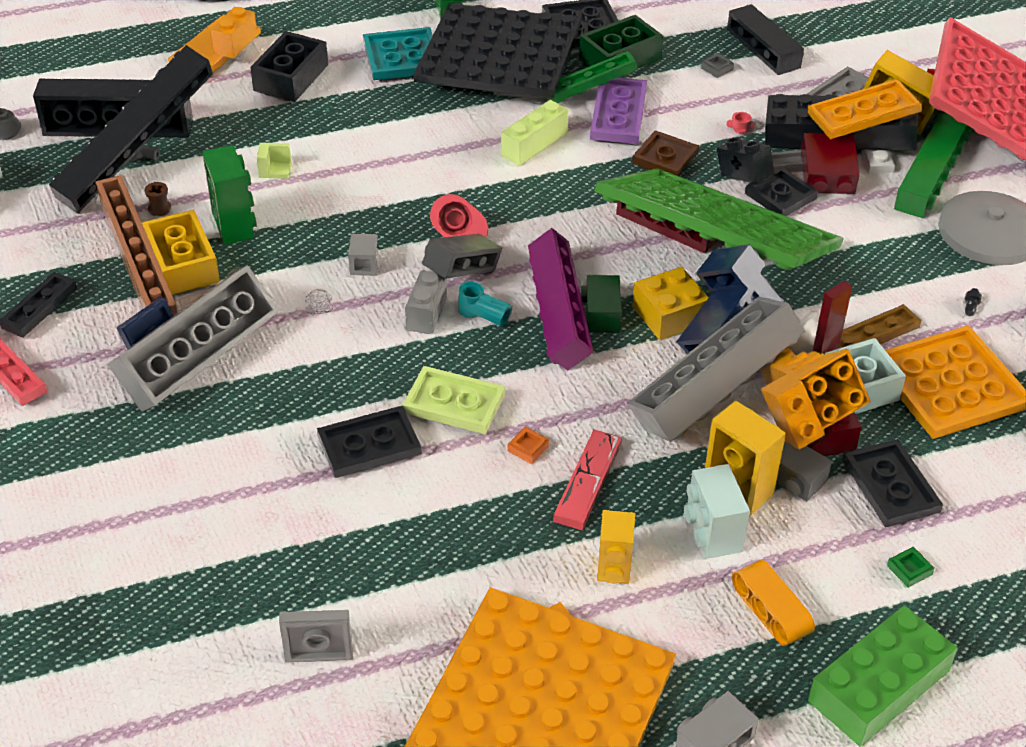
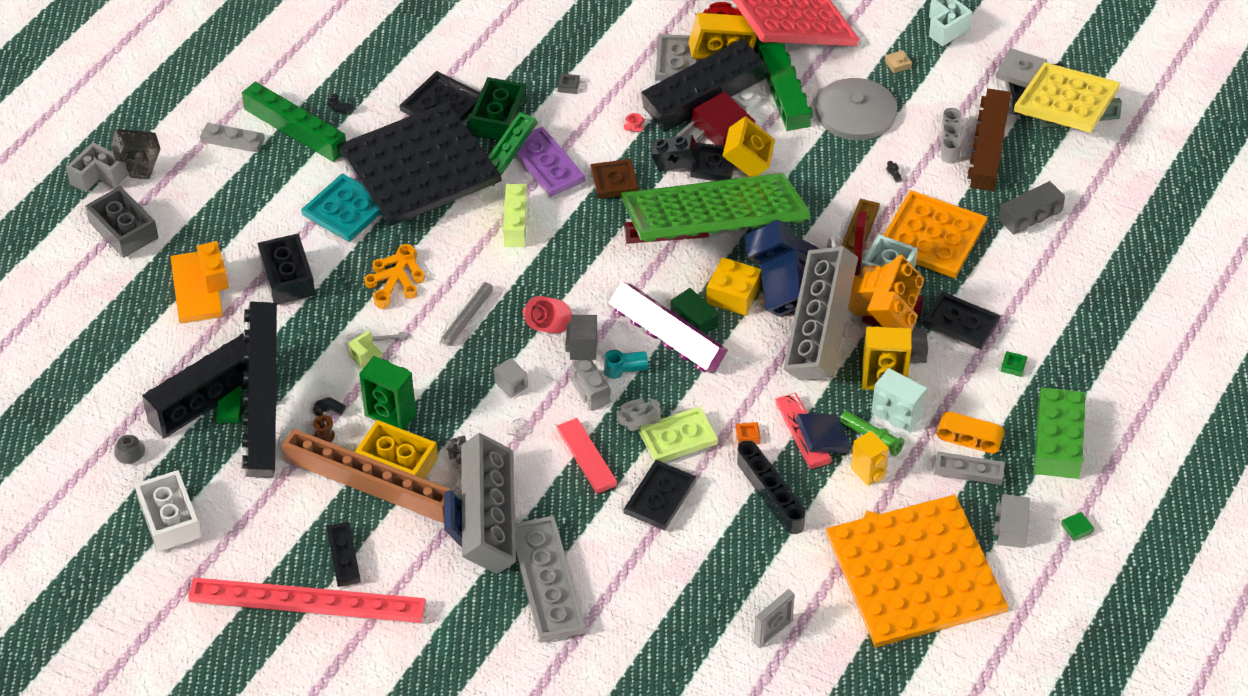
camera: 40 degrees left, 5 degrees up
(168, 445) = (547, 580): none -> light grey plate
(190, 184) = (328, 404): none -> black arm
(322, 171) = (401, 336): none -> light grey hinge
(349, 364) = (587, 455): none -> coral tile
(397, 185) = (466, 314): none -> light grey axle
(404, 113) = (404, 256): none -> light orange plant
(438, 353) = (637, 413): none -> light grey plate
(483, 509) = (771, 487): none -> black beam
(599, 489) = (823, 433): none -> dark blue tile
(662, 538) = (861, 426): none -> bright green pin
(730, 640) = (969, 468): none -> light grey plate
(765, 39) = (581, 42): black brick -> none
(824, 192) = (749, 147): none -> yellow brick
(864, 108) = (721, 69): light orange tile -> none

